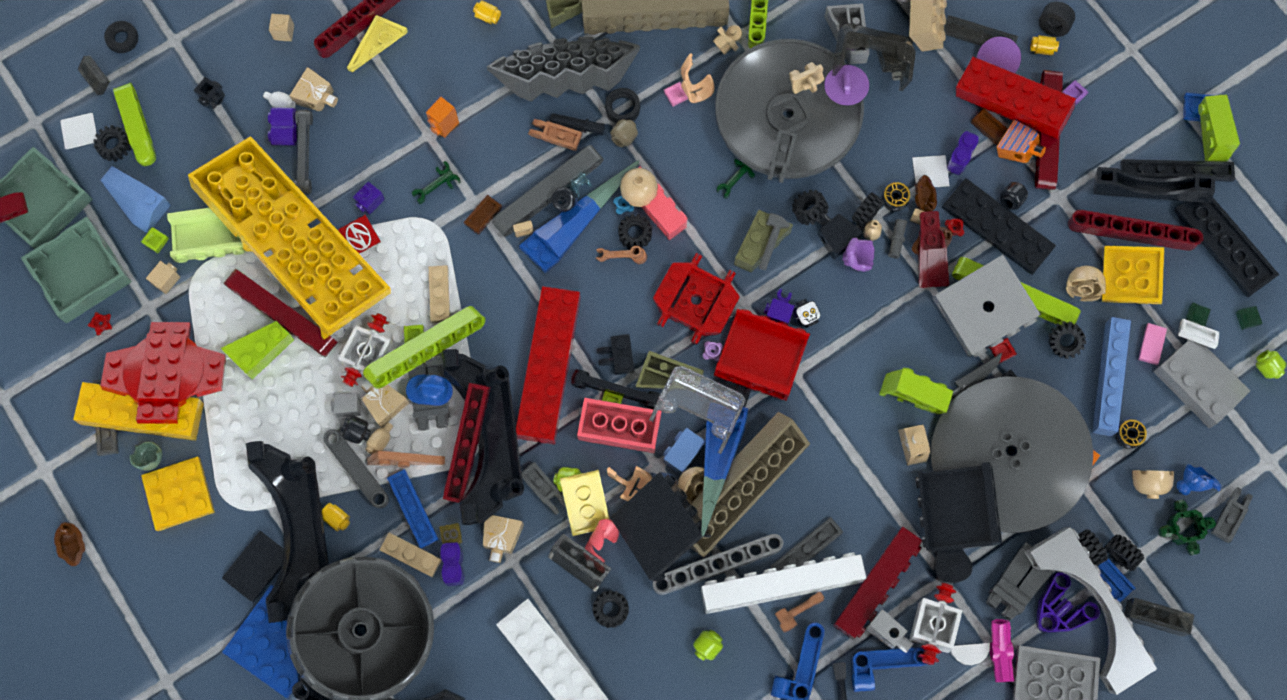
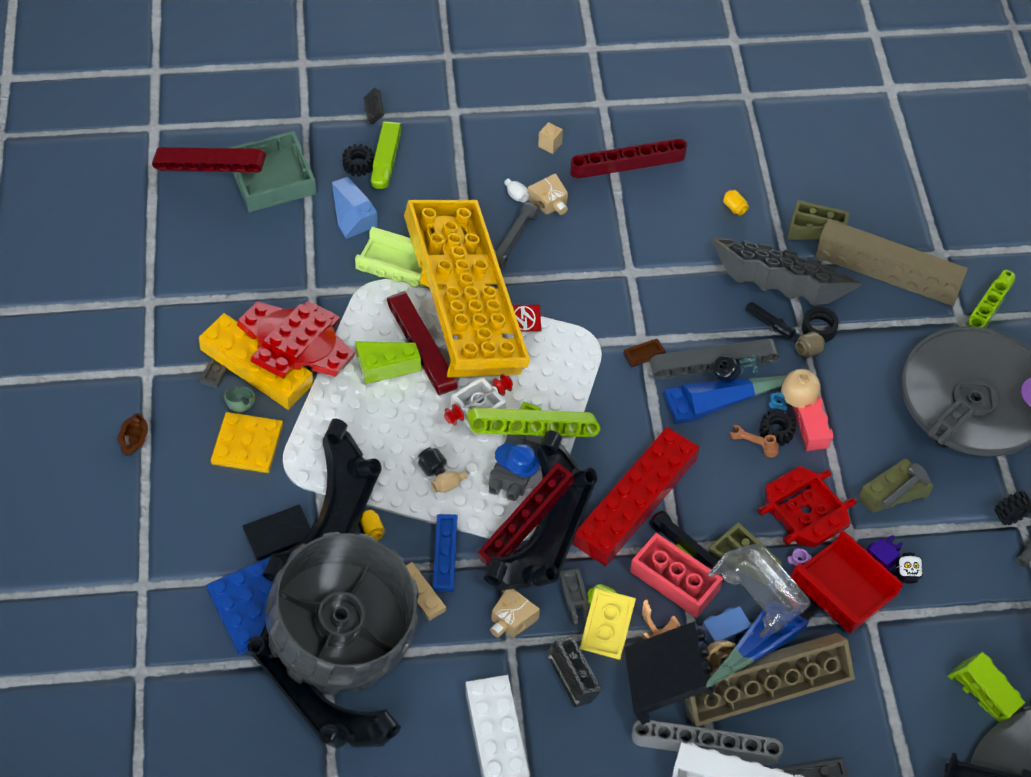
camera: 25 degrees right, 20 degrees down
(76, 270) = (271, 235): sand green tile -> none
(78, 130) = (336, 140): white sticker -> none
(100, 318) = (265, 280): red plate -> none
(117, 27) = (411, 98): black tyre -> none
(155, 240) = (349, 244): lime plate -> none
(163, 276) = (339, 273): tan brick -> none
(209, 93) = (461, 157): black brick -> none
(283, 127) = (508, 208): dark purple brick -> none
(346, 405) = (436, 437): light grey brick -> none
(356, 468) = (414, 495): dark grey piece -> none
(368, 198) = (550, 293): dark purple brick -> none
(377, 38) = (629, 180): light yellow wing -> none
(383, 402) = (470, 452): tan torso -> none
(403, 460) = (454, 501): nougat wing -> none
(439, 293) = (570, 390): tan plate -> none
(442, 117) = (651, 259): orange brick -> none
(445, 176) = (627, 307): dark green bar -> none
(451, 533) = (467, 592): clear yellow tile -> none
(452, 558) = (454, 615): dark purple brick -> none
(523, 229) = (674, 378): tan tile -> none
(556, 134) = (746, 319): nougat hinge -> none
(604, 529) = (616, 663): coral helmet -> none
(606, 597) = (576, 740): black tyre -> none
(622, 355) = (710, 522): black hinge -> none
(675, 94) = (875, 338): bright pink tile -> none
(706, 85) = (901, 346): light nougat helmet -> none
(727, 39) = (945, 314): tan hips -> none
(733, 180) = (908, 423): dark green bar -> none
(808, 79) = (1008, 370): tan hips -> none
(815, 213) = (958, 480): black tyre -> none
(837, 233) = (974, 517): black torso -> none
(859, 254) = (987, 541): medium lavender hair -> none
(872, 230) = (1010, 527): tan plant -> none
(914, 443) = (962, 726): tan torso -> none

